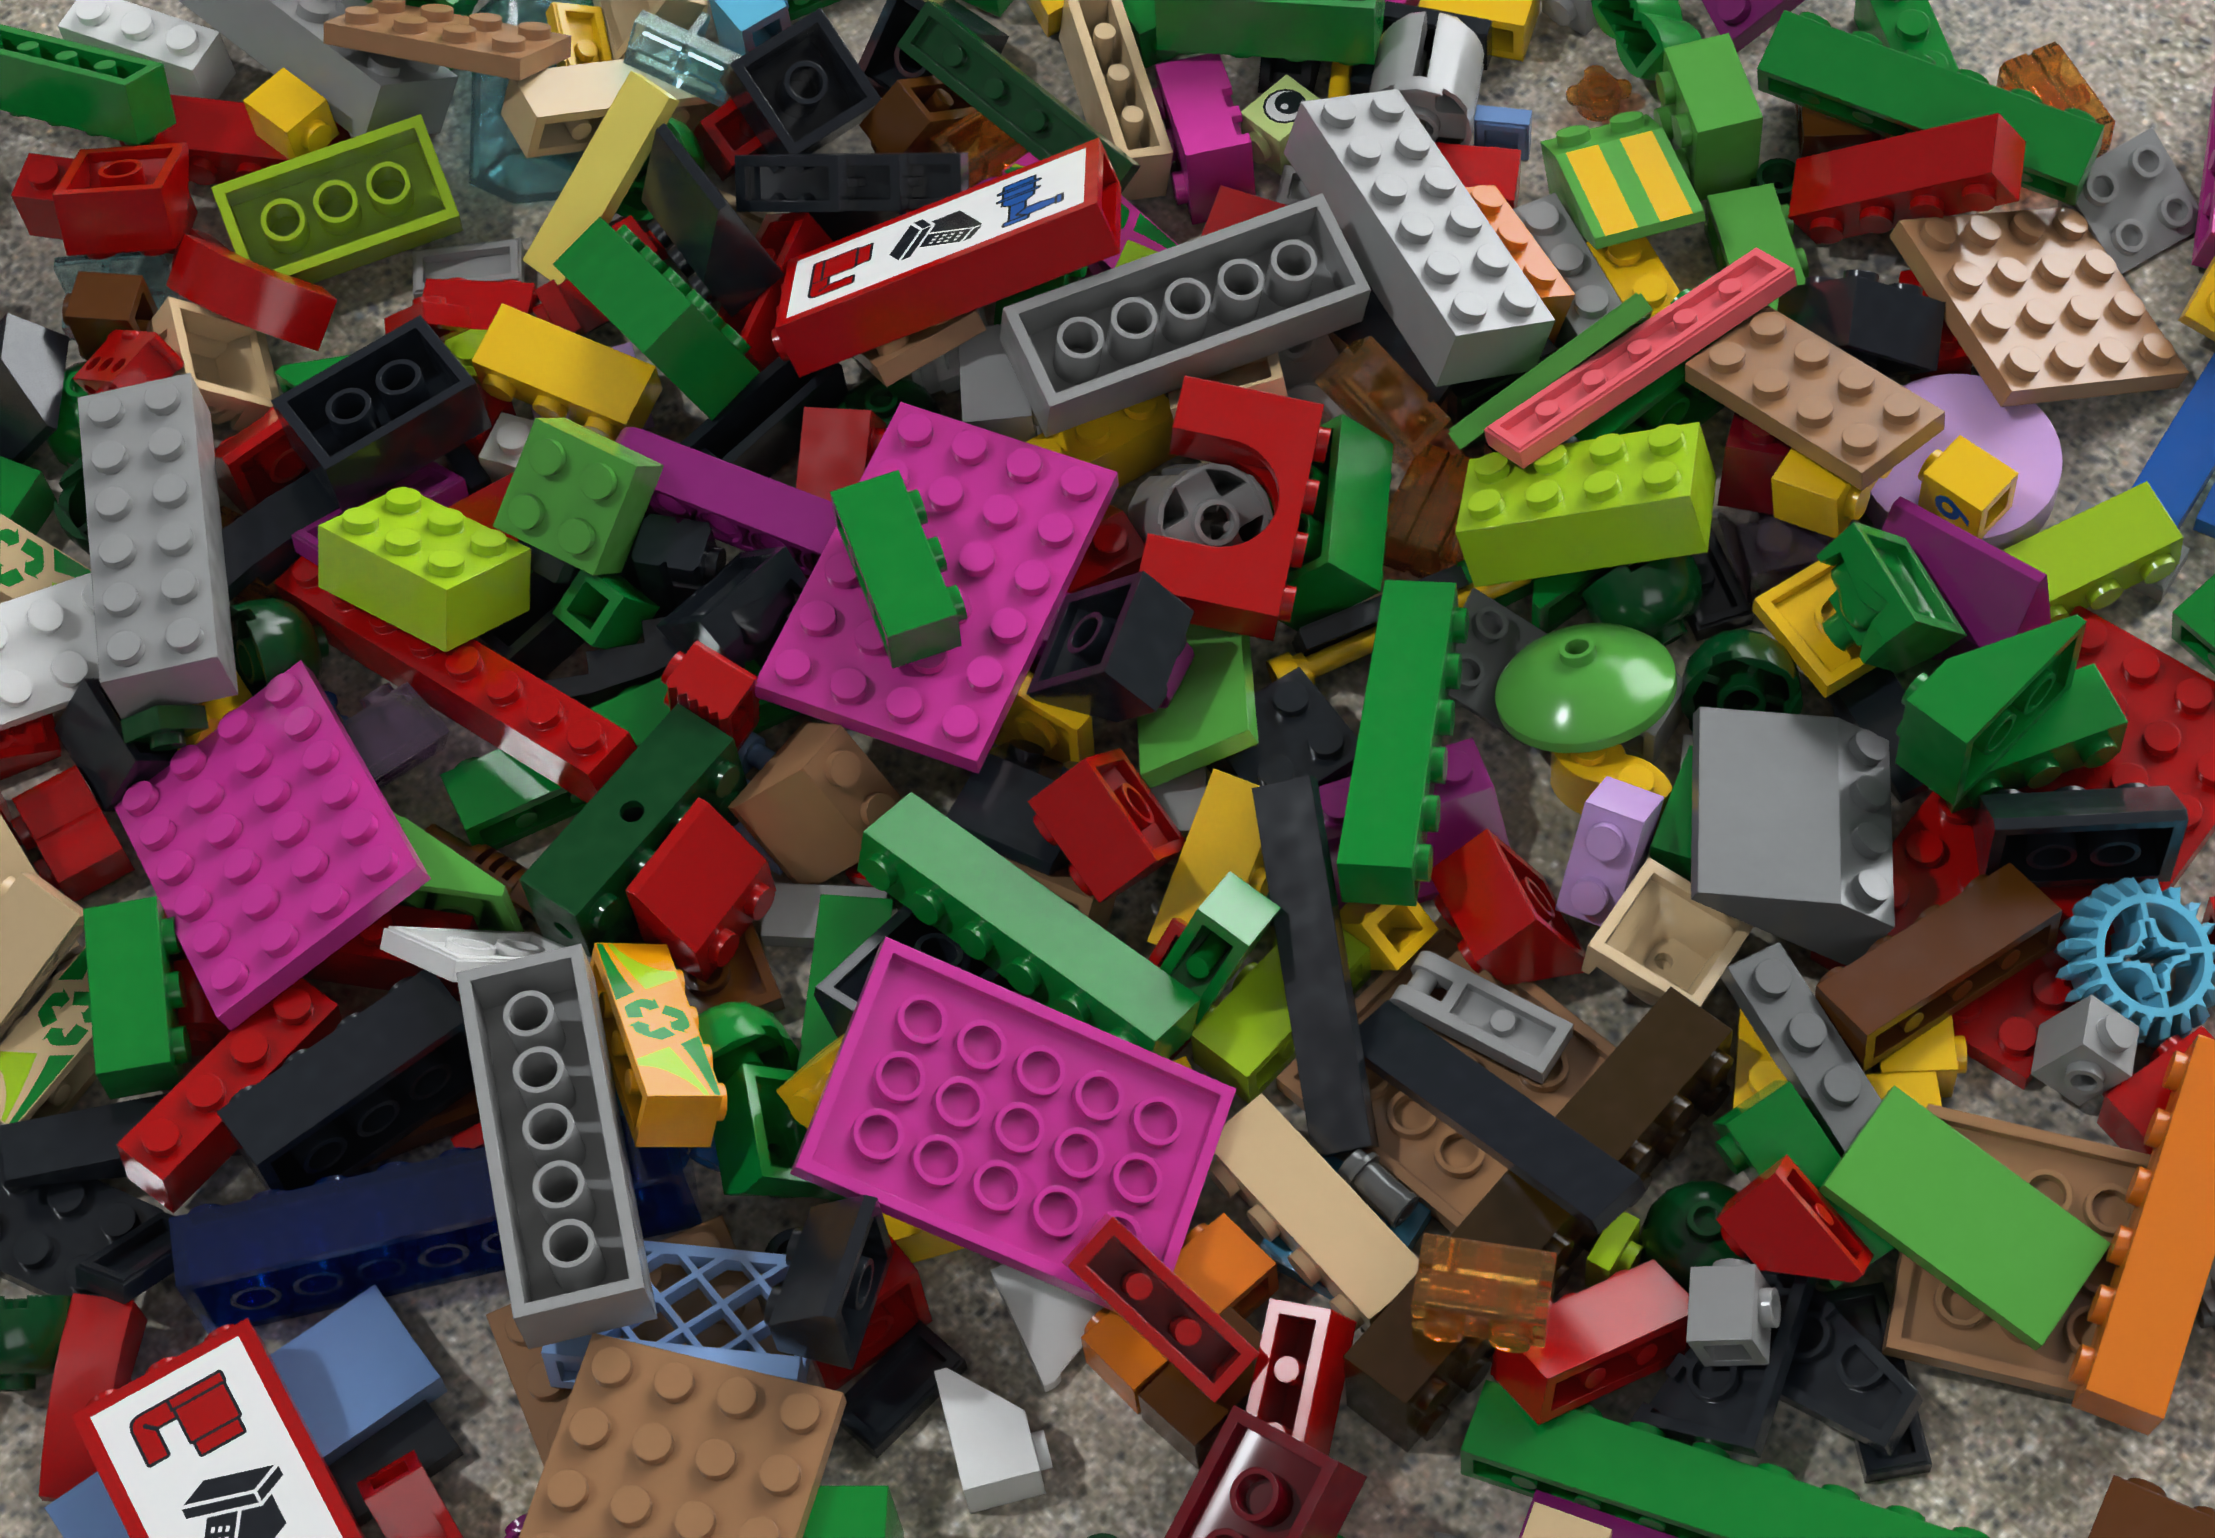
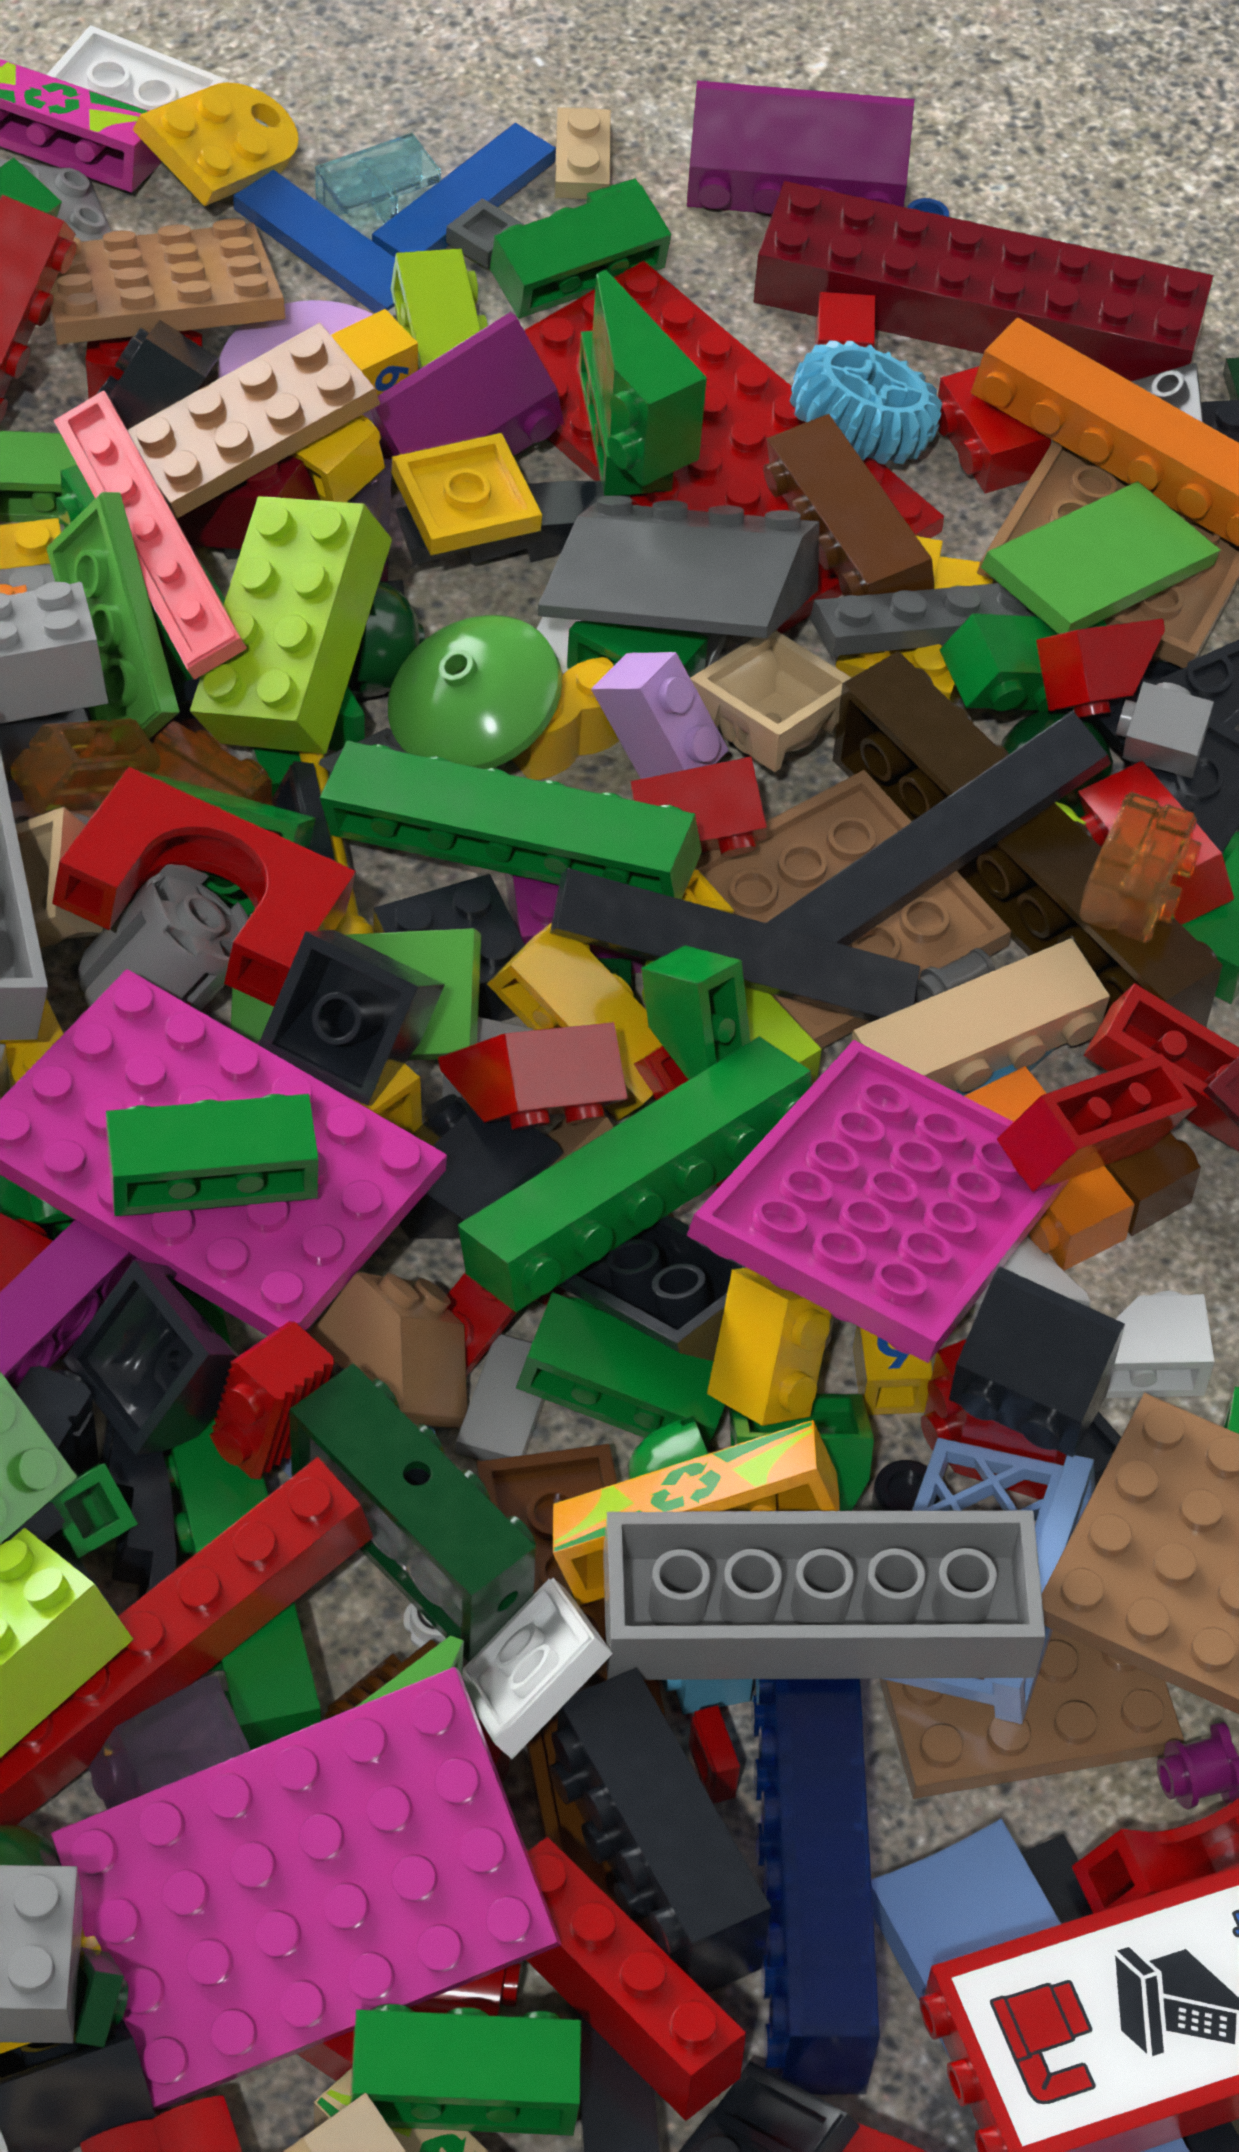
camera: 90 degrees left, 5 degrees down
(701, 891) = (494, 1447): red slope -> none
(1484, 1016) = (802, 855): light grey plate -> none
(1741, 673) = (492, 579): dark green cylinder -> none
(1885, 601) = (496, 429): green brick -> none
(2081, 834) = (742, 391): black slope -> none
(2085, 1050) = (946, 454): light grey brick -> none

